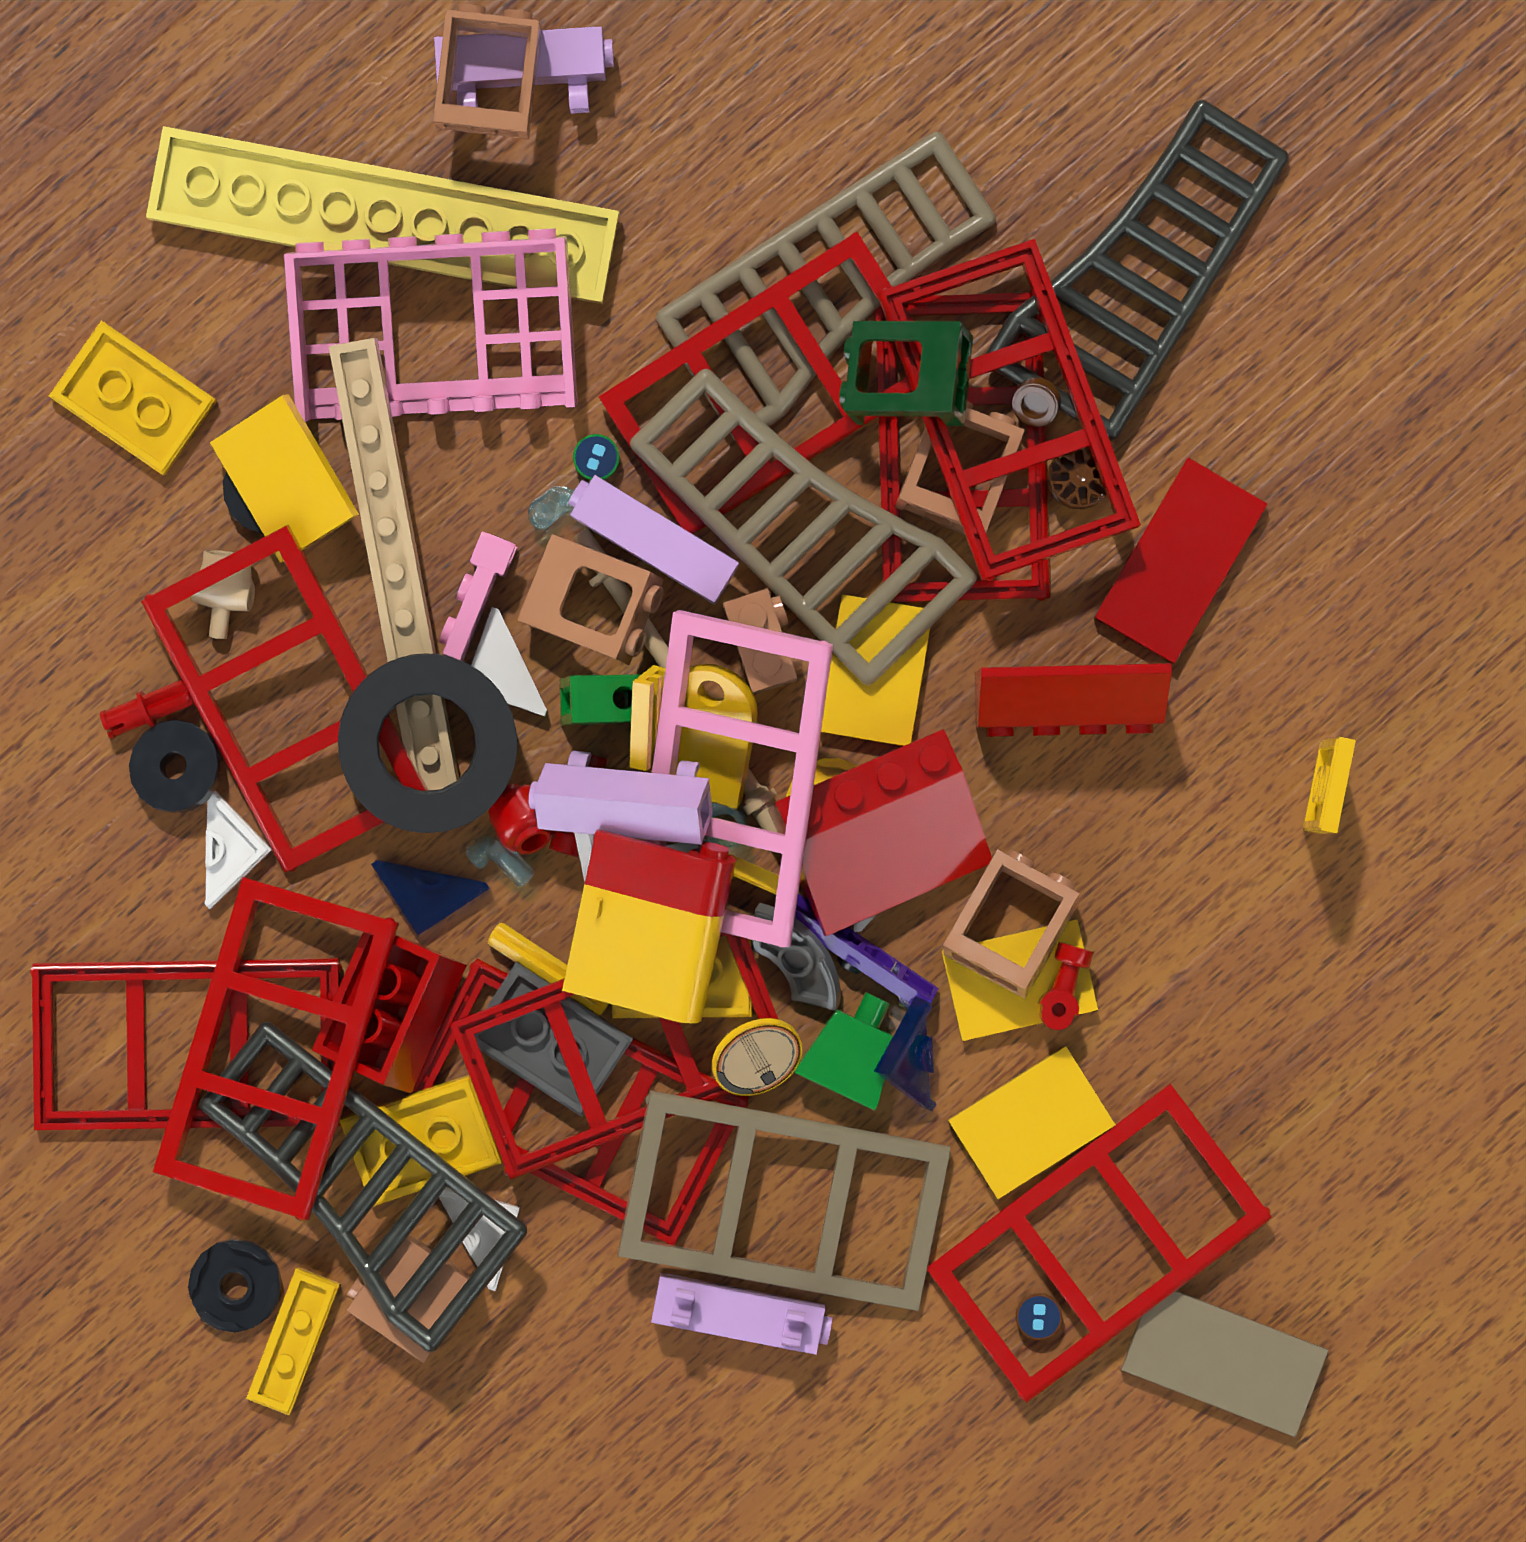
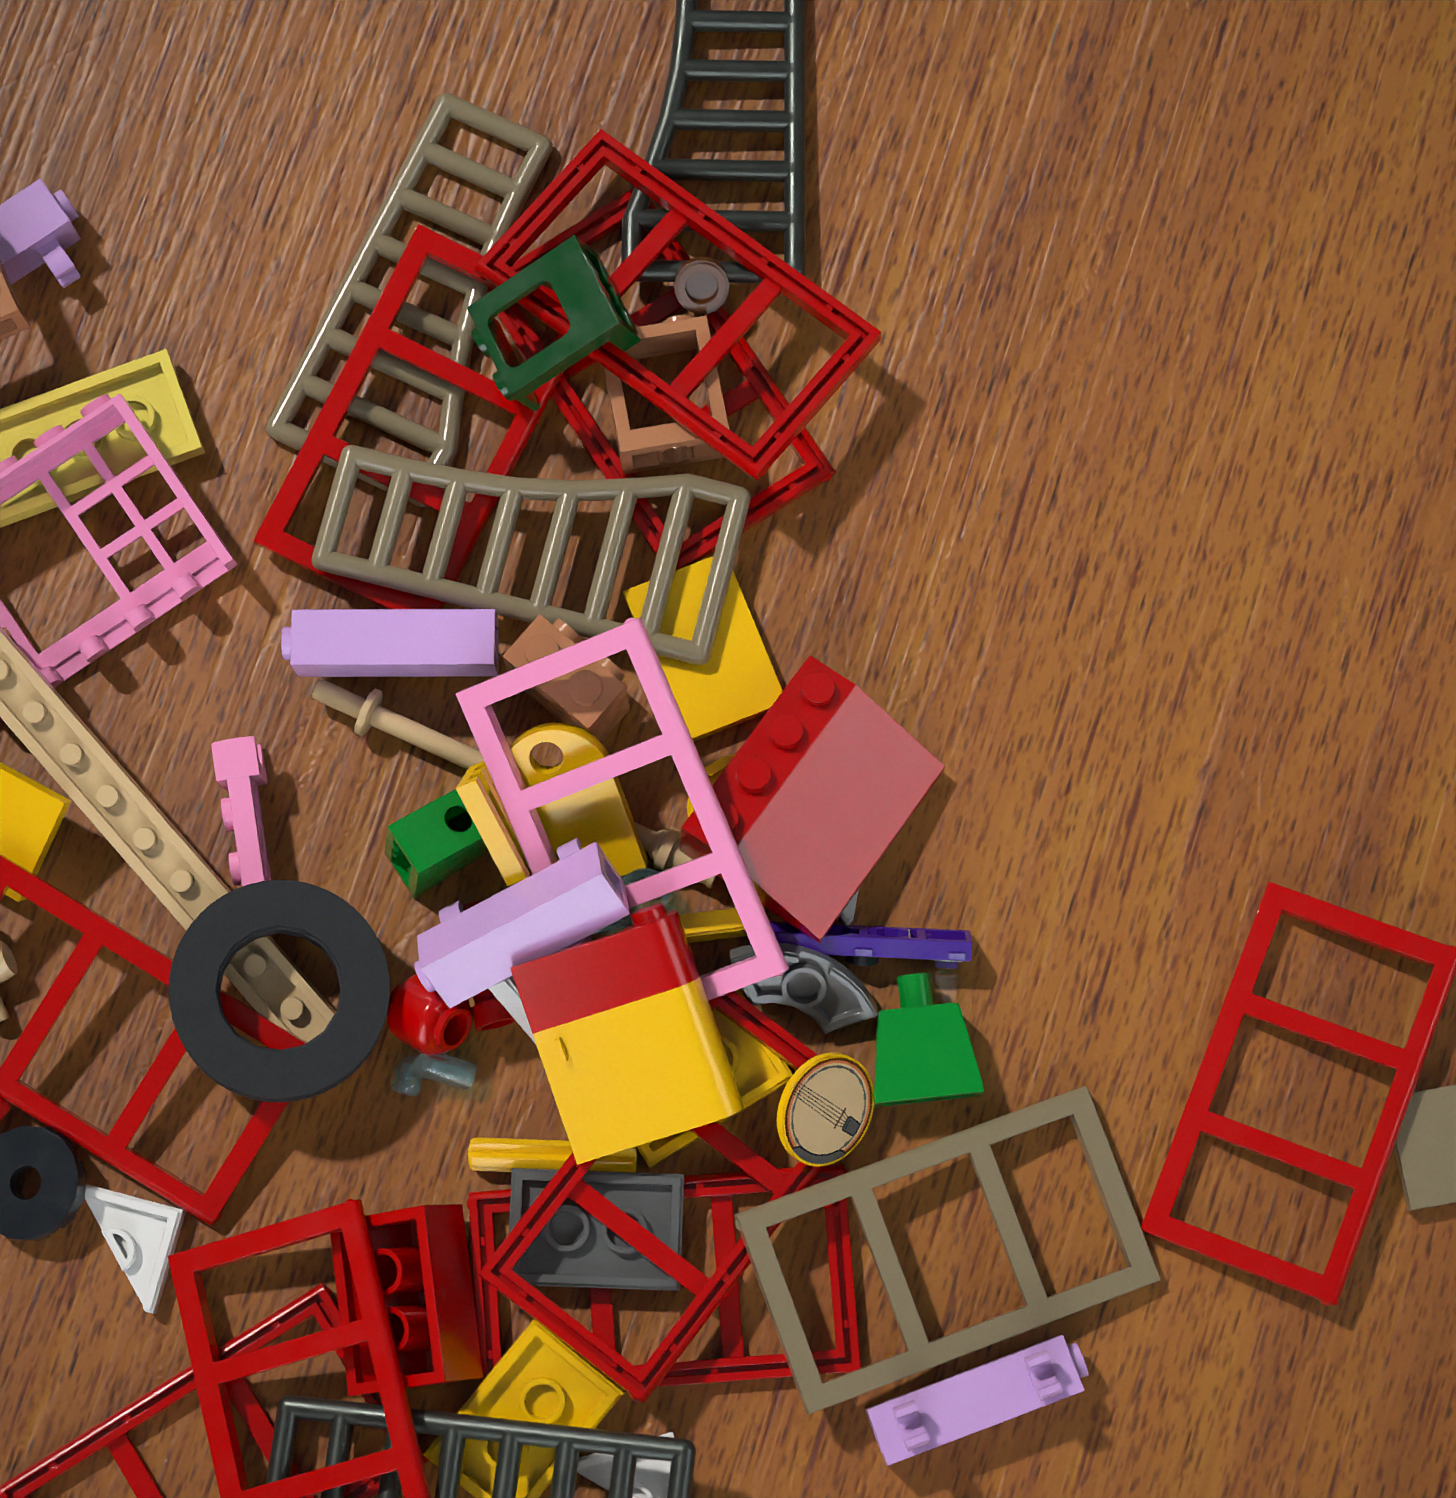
camera: 30 degrees left, 10 degrees down
(427, 895) = (378, 1157): clear blue tile -> none
(503, 664) = (310, 862): white tile -> none
(550, 507) = (270, 682): clear light blue arm -> none
(552, 584) = (315, 750): nougat window -> none
(596, 456) = (282, 598): dark blue tile -> none
(910, 1056) = (985, 1014): clear blue tile -> none
(989, 963) = (1011, 864): nougat window -> none
(989, 1008) = (1046, 870): yellow tile -> none
(1031, 1122) = (1152, 1009): yellow tile -> none
(1038, 1316) = (1289, 1208): dark blue tile -> none
(1059, 1003) = (1105, 864): red leg -> none
(1071, 697) = (918, 542): red slope -> none
(1075, 480) = (789, 339): reddish brown wheel -> none
(1180, 560) = (943, 359): red tile -> none
(1329, 785) = (1237, 473): yellow tile -> none

